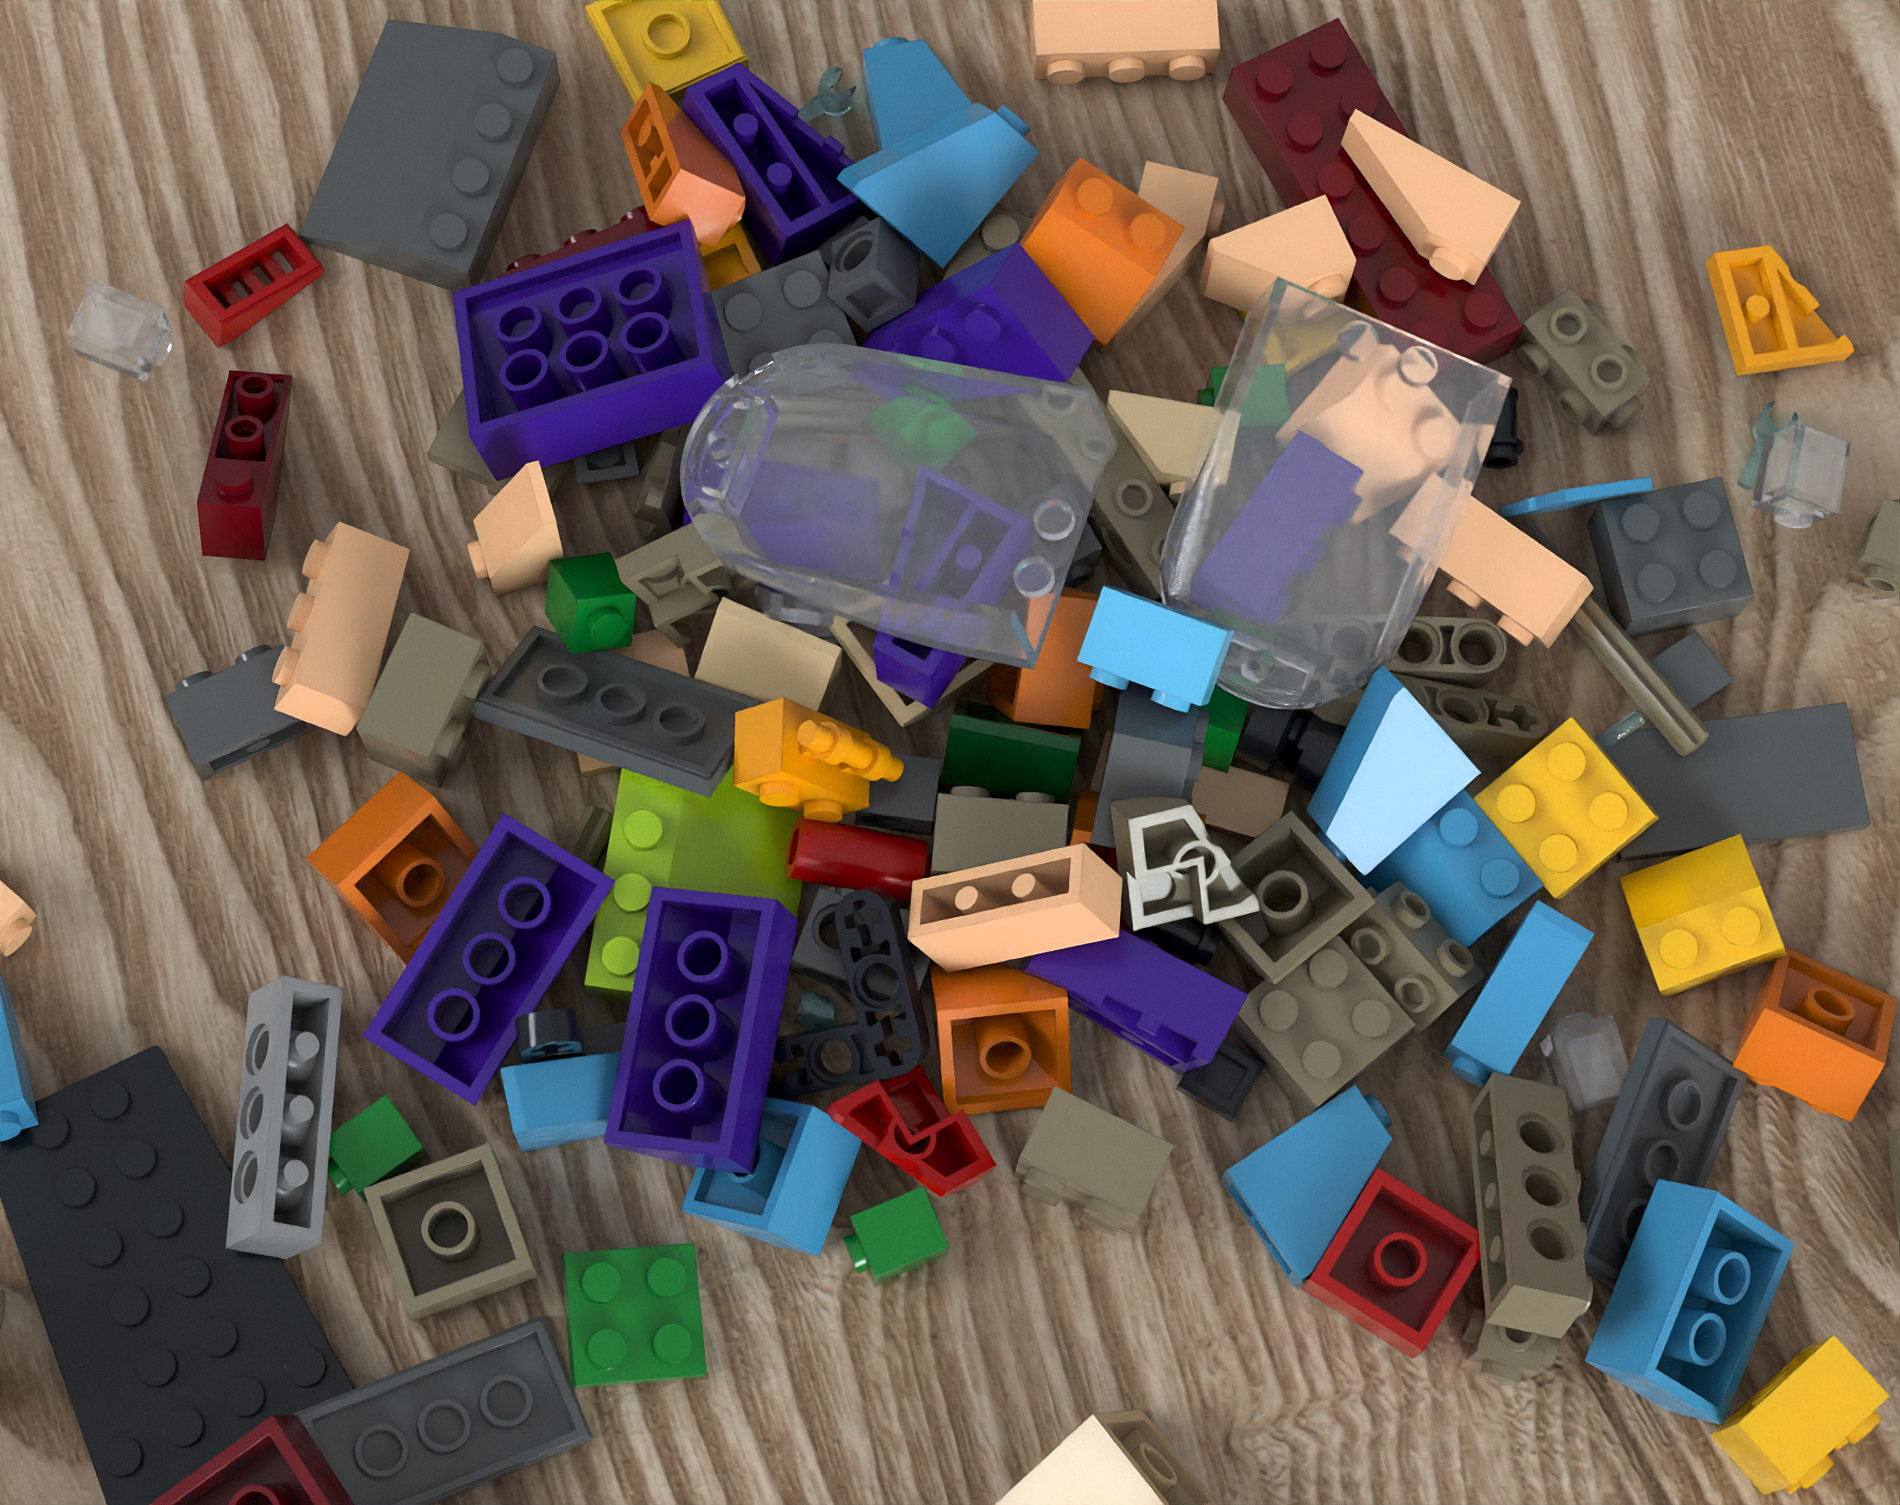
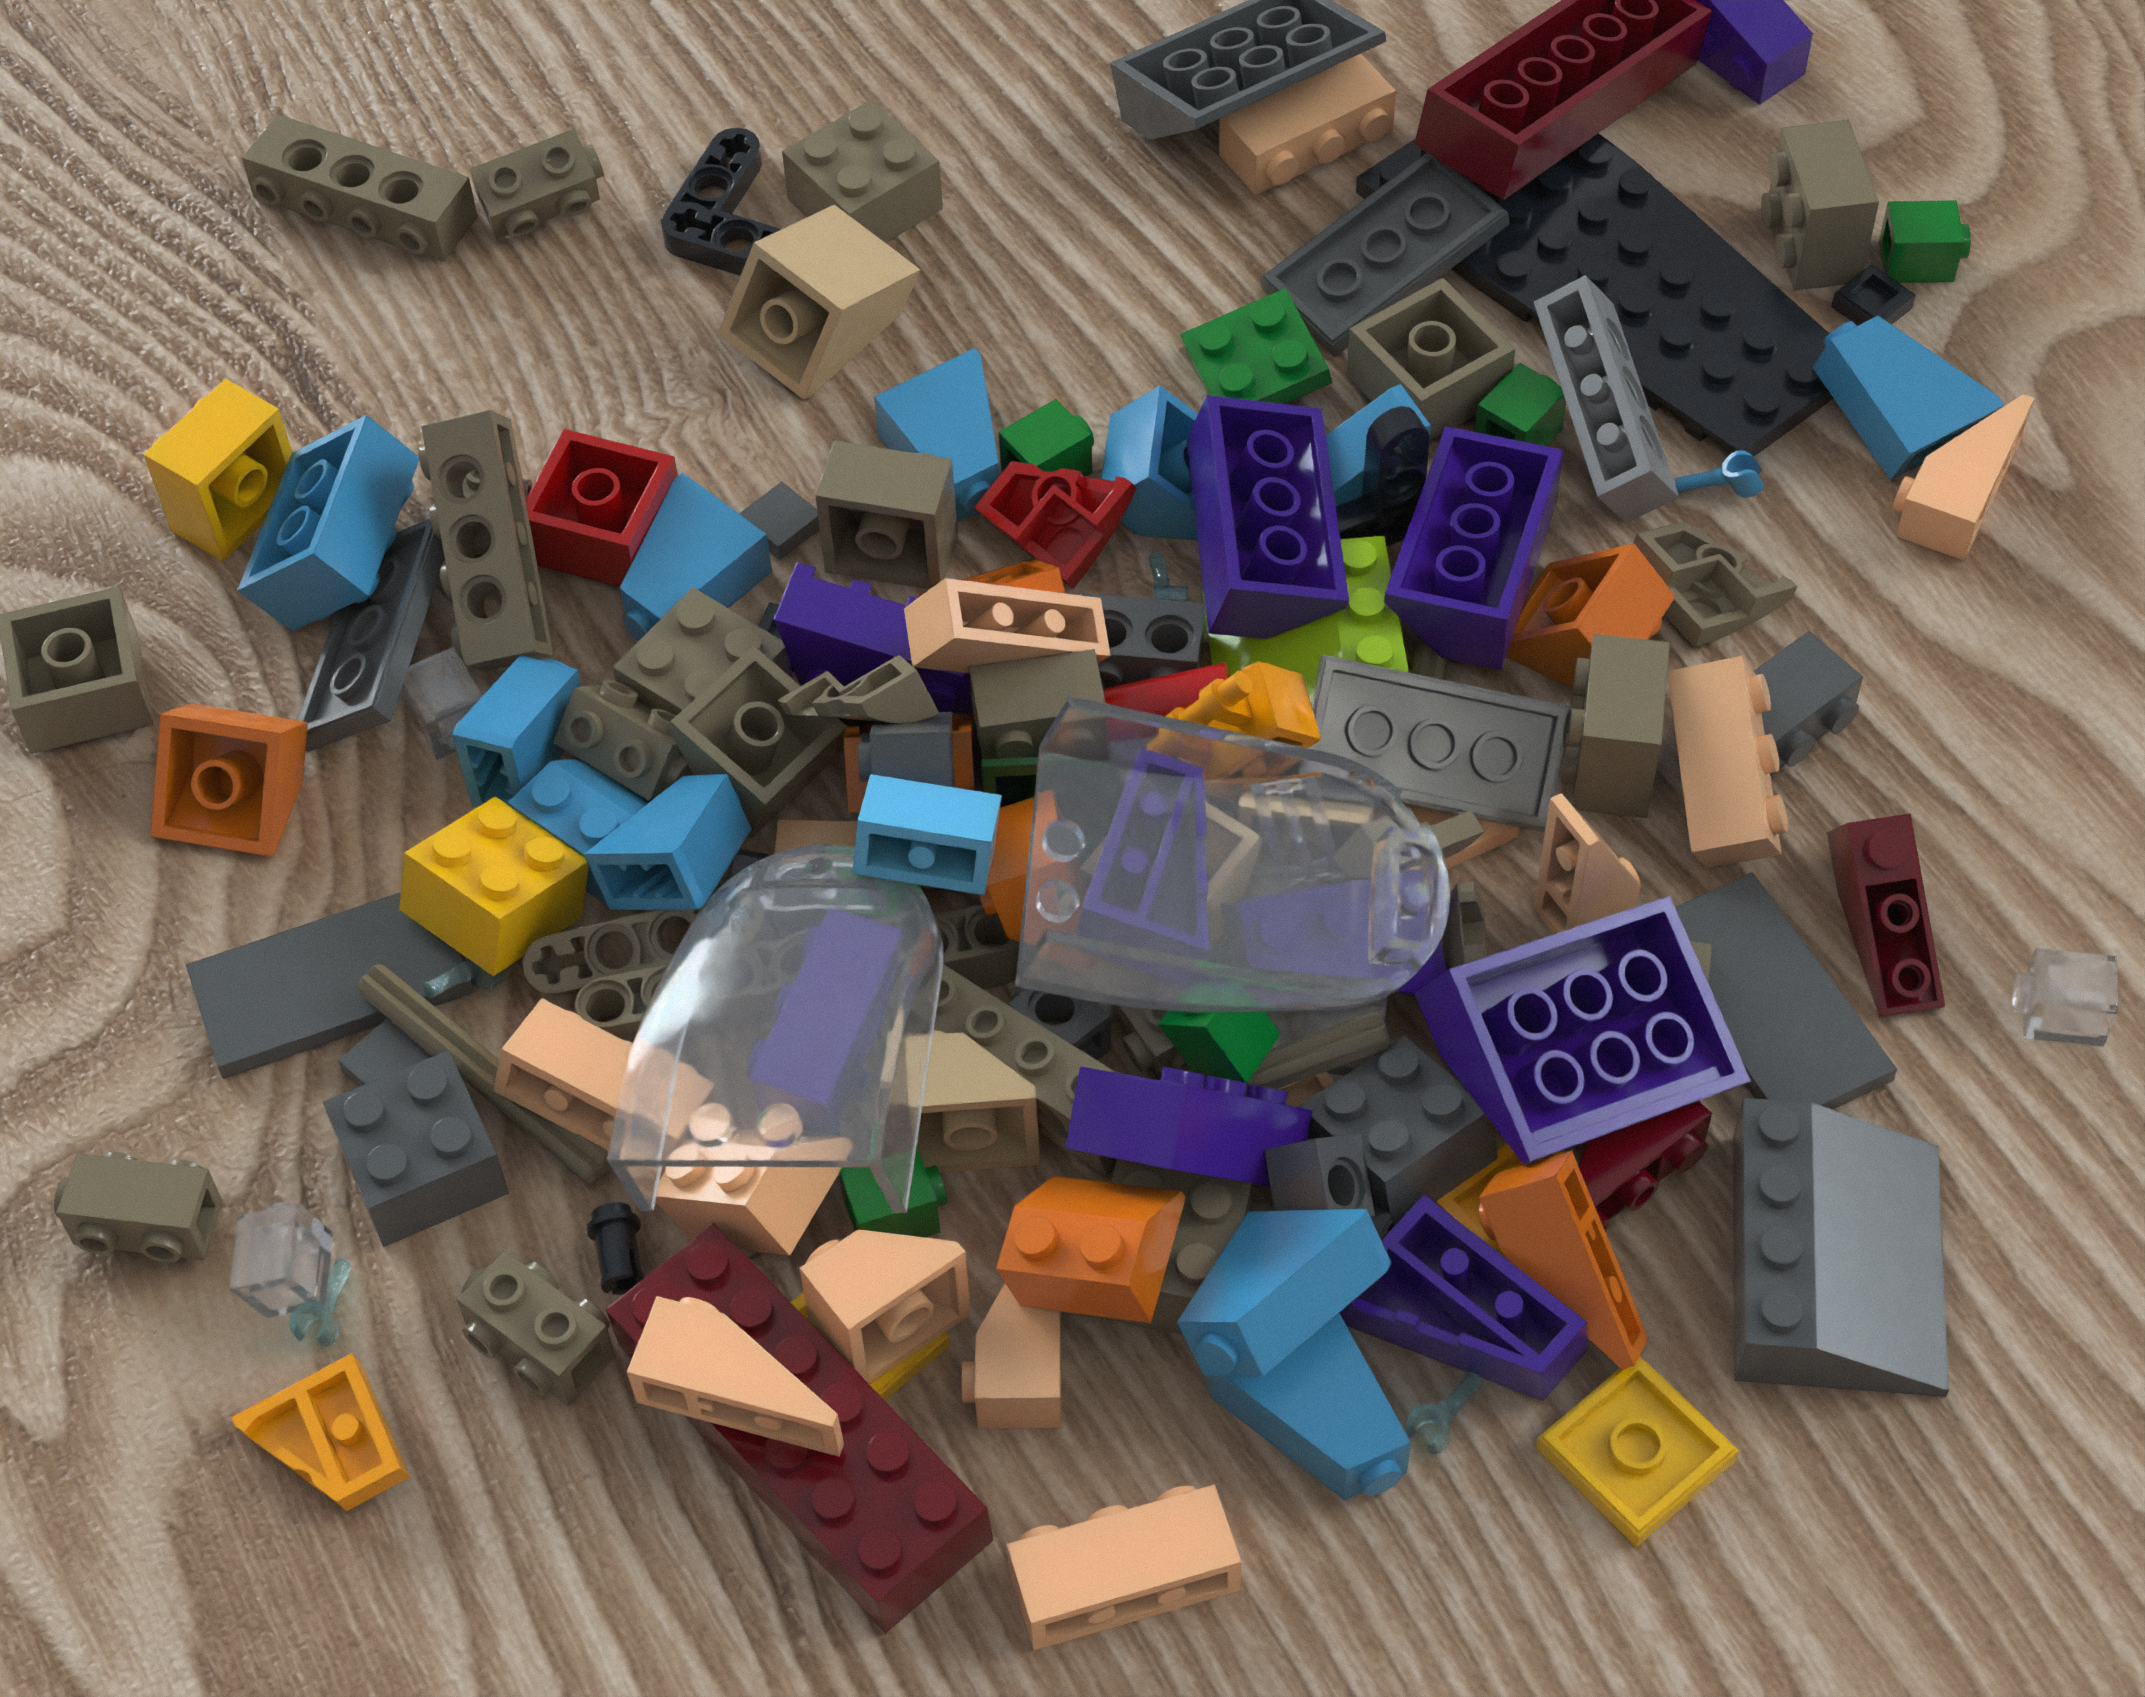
camera: 175 degrees right, 20 degrees down
(189, 1022) = (1738, 470): none -> dark azure hand
(241, 314) = (1985, 1041): red slope -> none
(263, 892) = (1709, 583): none -> dark tan slope
(384, 407) = (1780, 1003): none -> dark grey tile
(589, 603) = (1507, 848): green brick -> none
(866, 1034) = (1119, 567): black beam -> none
(1000, 1284) = (947, 417): none -> dark azure slope
(1199, 1233) = (784, 519): none -> dark grey tile
(1576, 497) = (522, 1156): dark azure piece -> none
(1702, 916) = (343, 828): yellow slope -> none

